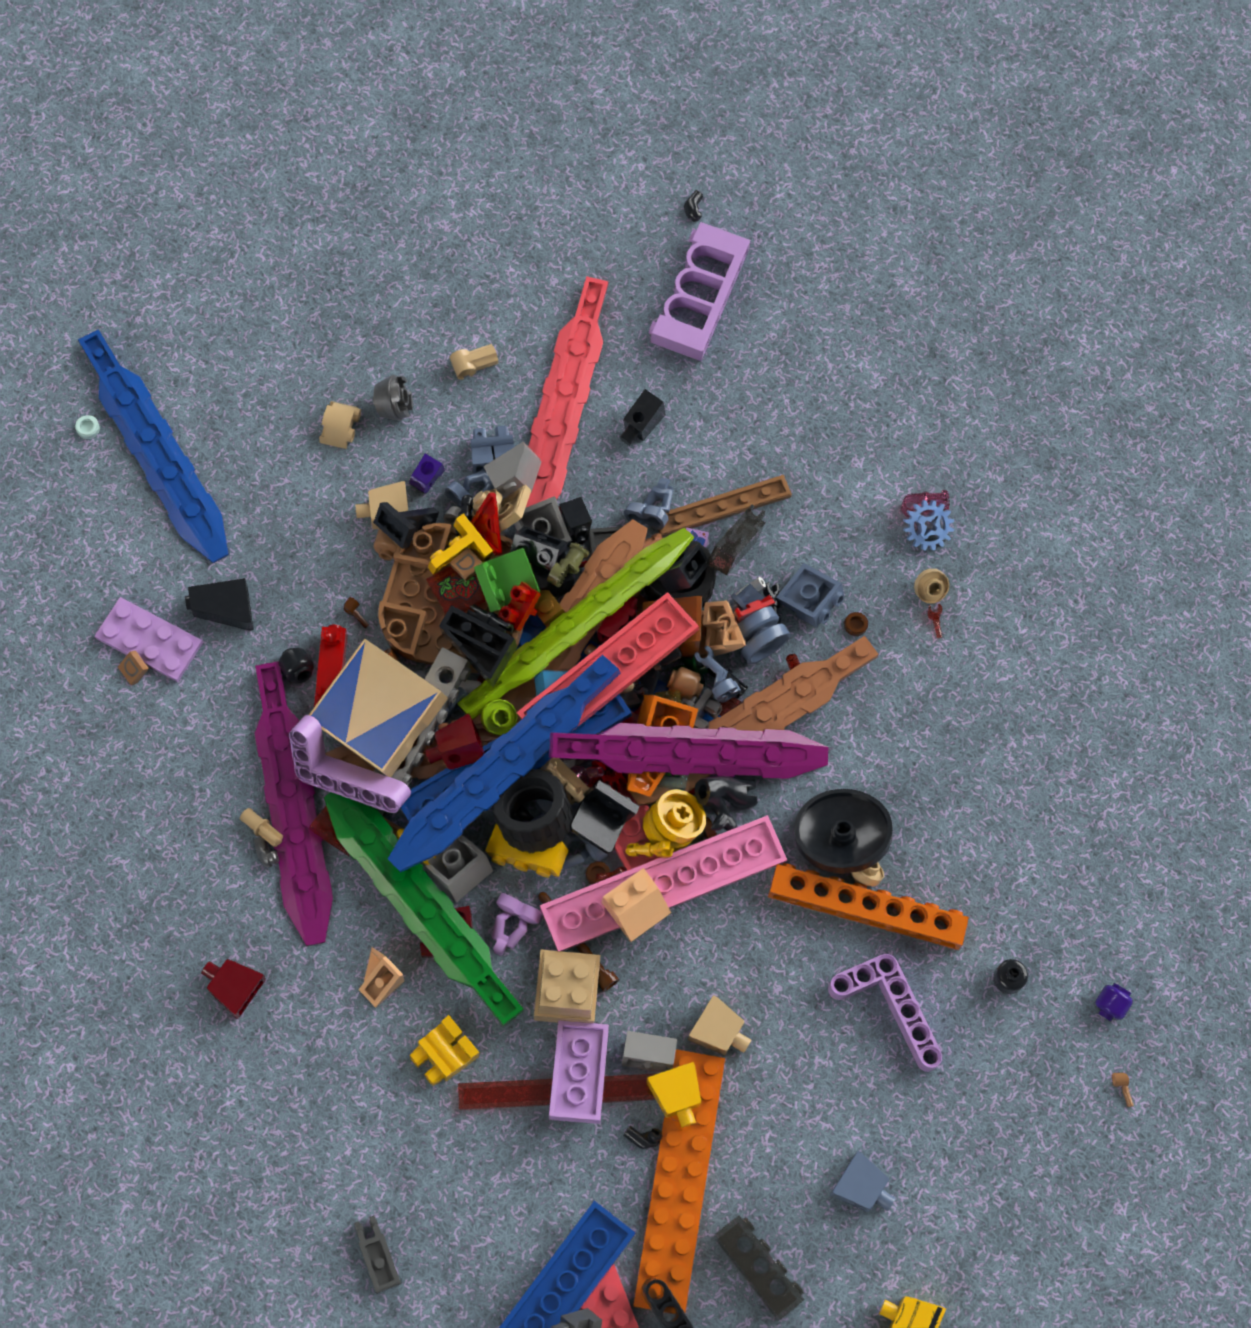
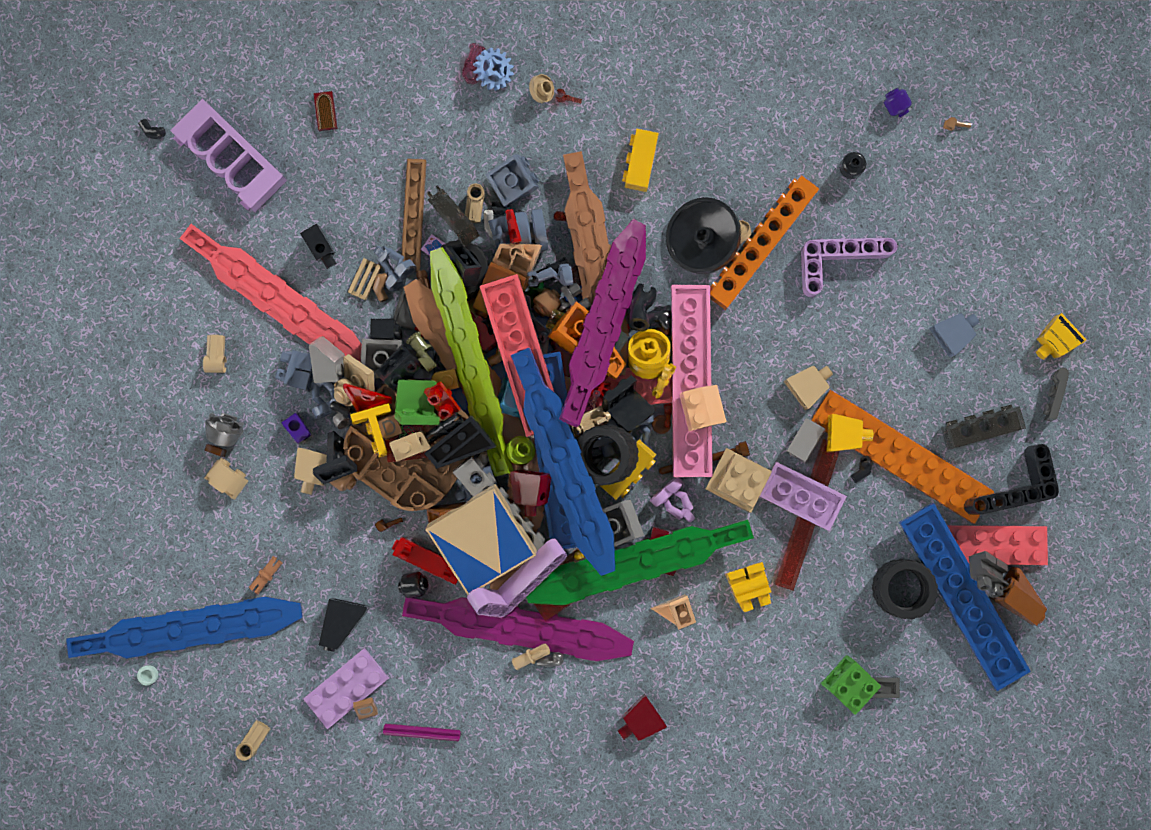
camera: 65 degrees left, 15 degrees up
(54, 561) = (253, 740): none -> tan piece
(127, 741) = (421, 732): none -> magenta axle
(246, 505) = (265, 575): none -> nougat pin
(366, 401) = (215, 450): none -> reddish brown tile
(368, 1225) = (851, 684): none -> bright green bracket
(451, 587) = (409, 446): none -> tan torso
(508, 1210) = (927, 593): none -> black tyre
(622, 500) = (378, 286): none -> medium nougat arm
(626, 474) = (370, 265): none -> tan tile
(762, 564) = (474, 205): none -> tan piece
(797, 370) = (325, 111): none -> tile
(856, 624) = (547, 157): reddish brown tile -> none
(901, 727) = (640, 160): none -> yellow brick

